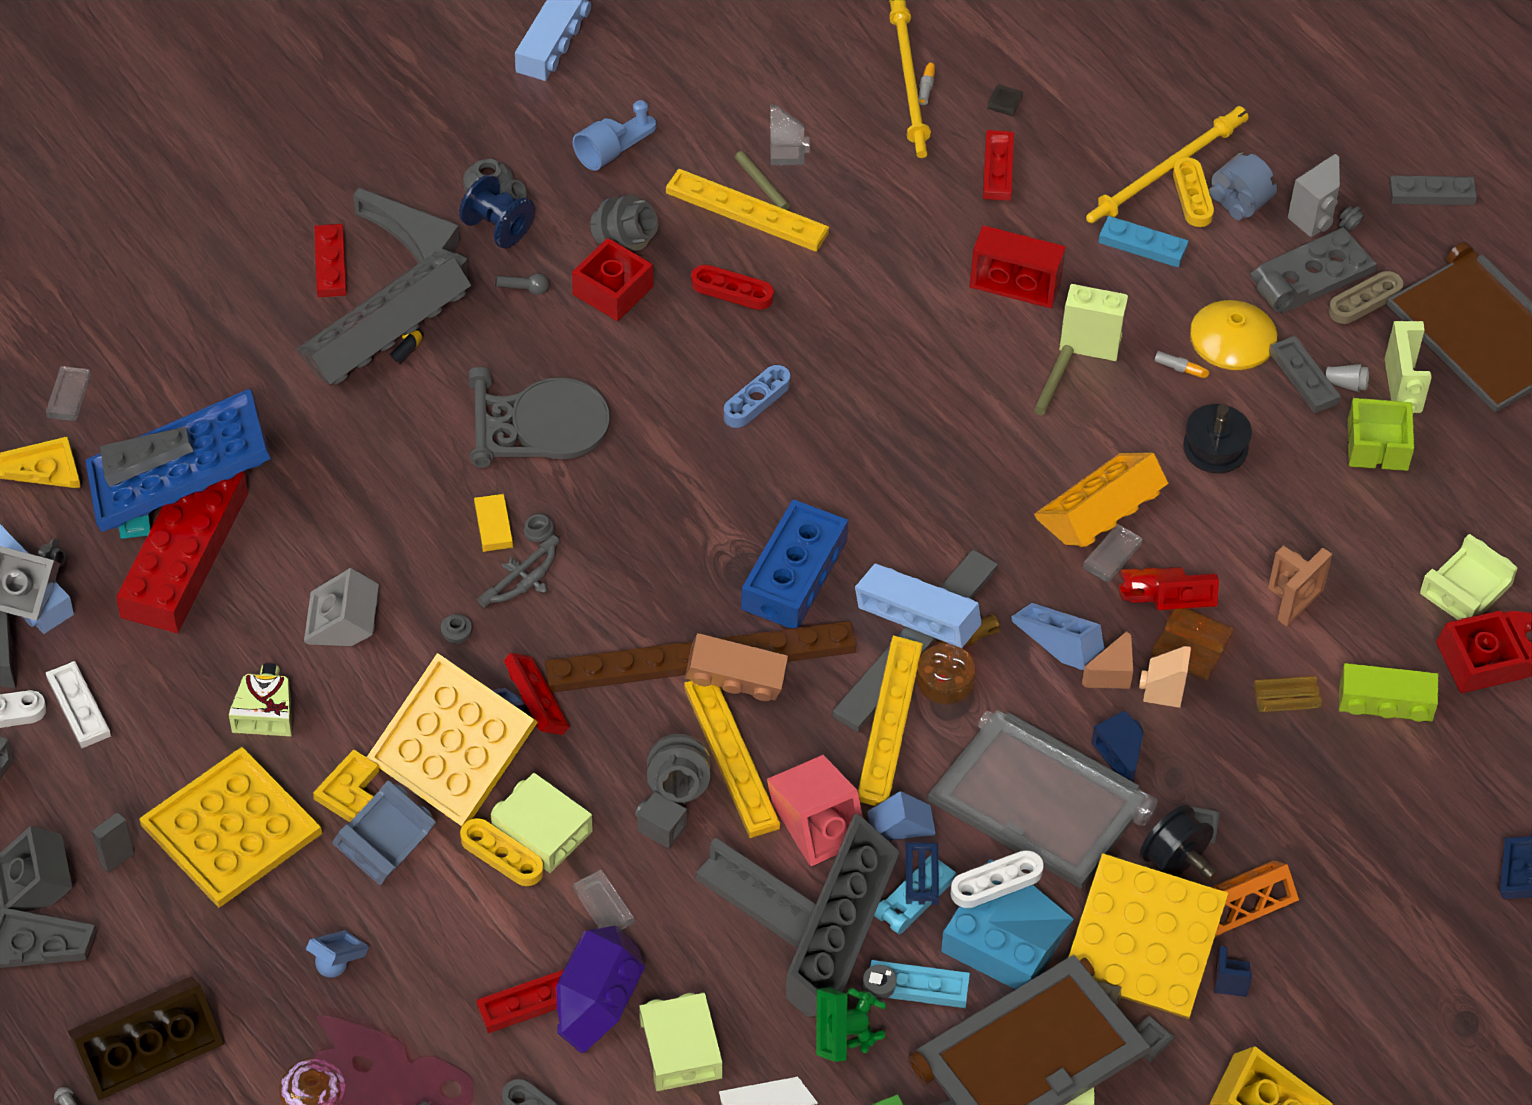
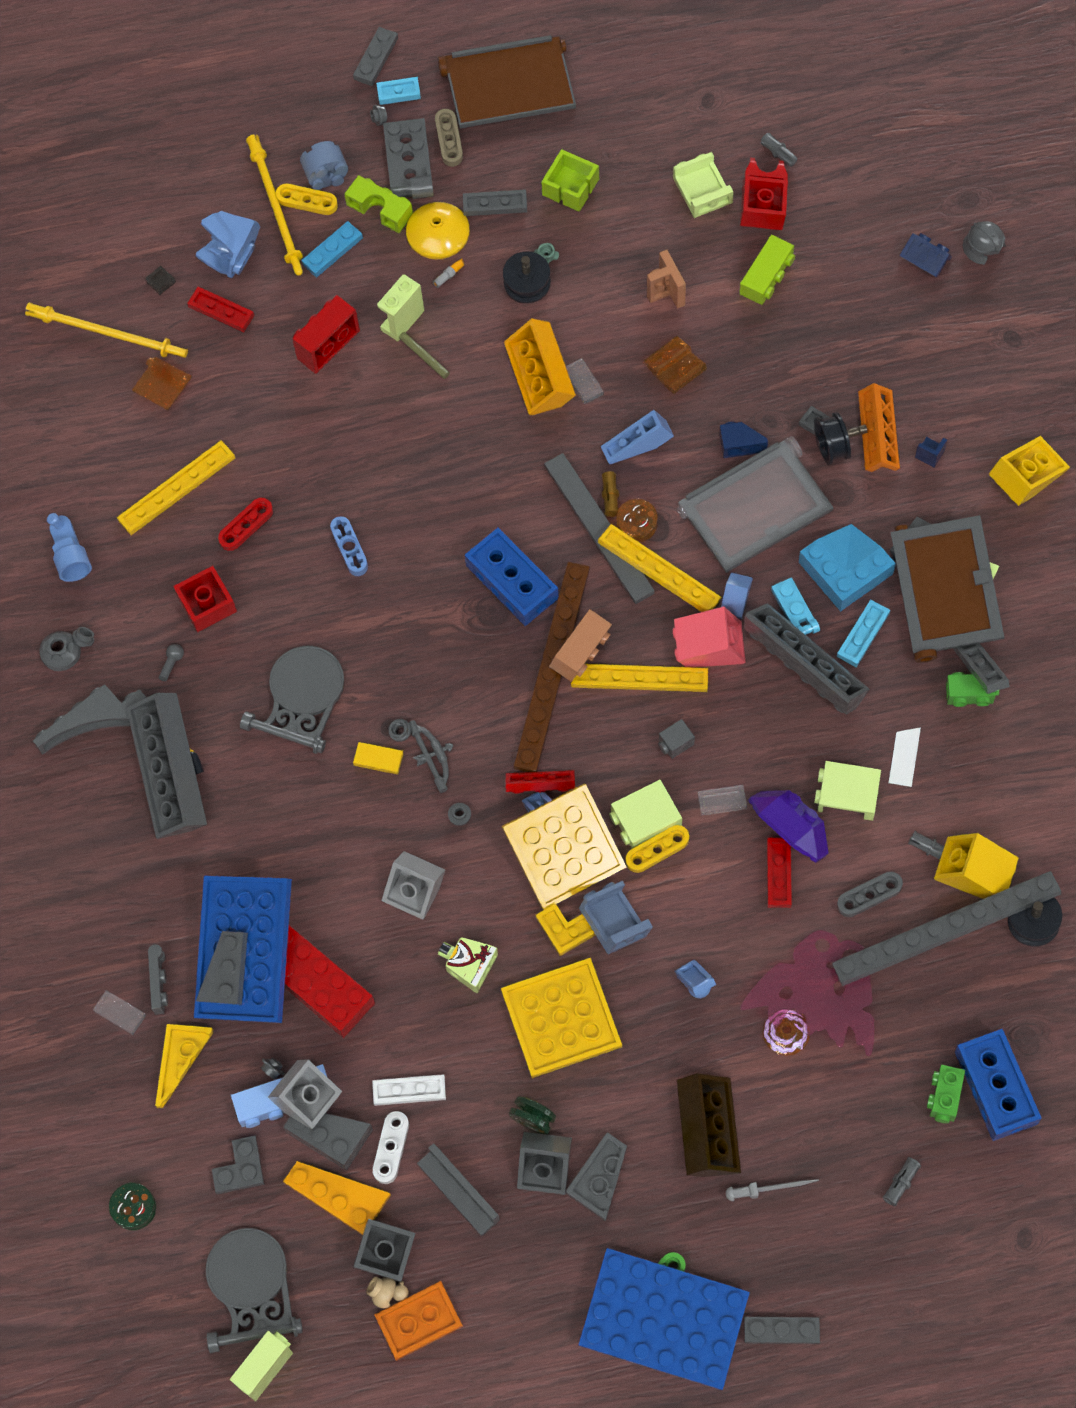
camera: 60 degrees left, 15 degrees up
(79, 837) = (532, 1115): none -> clear green head
(112, 842) = (550, 1097): dark grey tile -> none
(119, 408) = (157, 979): none -> dark grey plate
(330, 260) = (82, 786): red plate -> none
(508, 215) = (102, 649): dark blue hose -> none
(625, 221) = (161, 570): dark grey piece -> none
(678, 768) = (648, 711): dark grey piece -> none
(756, 892) = (757, 702): dark grey fence -> none
(761, 180) = (154, 467): olive bar -> none
(786, 138) = (125, 435): clear slope -> none
(838, 1022) = (882, 687): green piece -> none
(873, 147) = (161, 382): none -> clear orange hinge
(879, 981) = (858, 654): dark grey tile -> none
(918, 605) = (581, 513): light blue brick -> none
(921, 895) = (785, 604): dark blue tile -> none
(926, 83) = (117, 323): light grey piece -> none
(1005, 870) = (828, 544): white plate -> none
(1086, 132) = (230, 244): none -> medium blue piece
(1112, 666) = (676, 415): nougat slope -> none
(1148, 933) = (888, 484): yellow plate -> none
(1155, 1036) = (952, 513): dark grey tile -> none
(1166, 678) = (703, 389): light nougat slope -> none
(1169, 588) = (631, 359): red plate -> none
(1231, 243) = (365, 194): none -> lime arch
(1265, 446) = (547, 248): none -> sand green plate
(1285, 690) = (743, 312): clear yellow tile -> none
(1316, 197) = (359, 124): light grey slope -> none
(1349, 377) = (511, 176): light grey cone -> none
(1397, 226) = (398, 90): none -> medium azure plate
(1400, 359) = (525, 143): yellowish green panel -> none

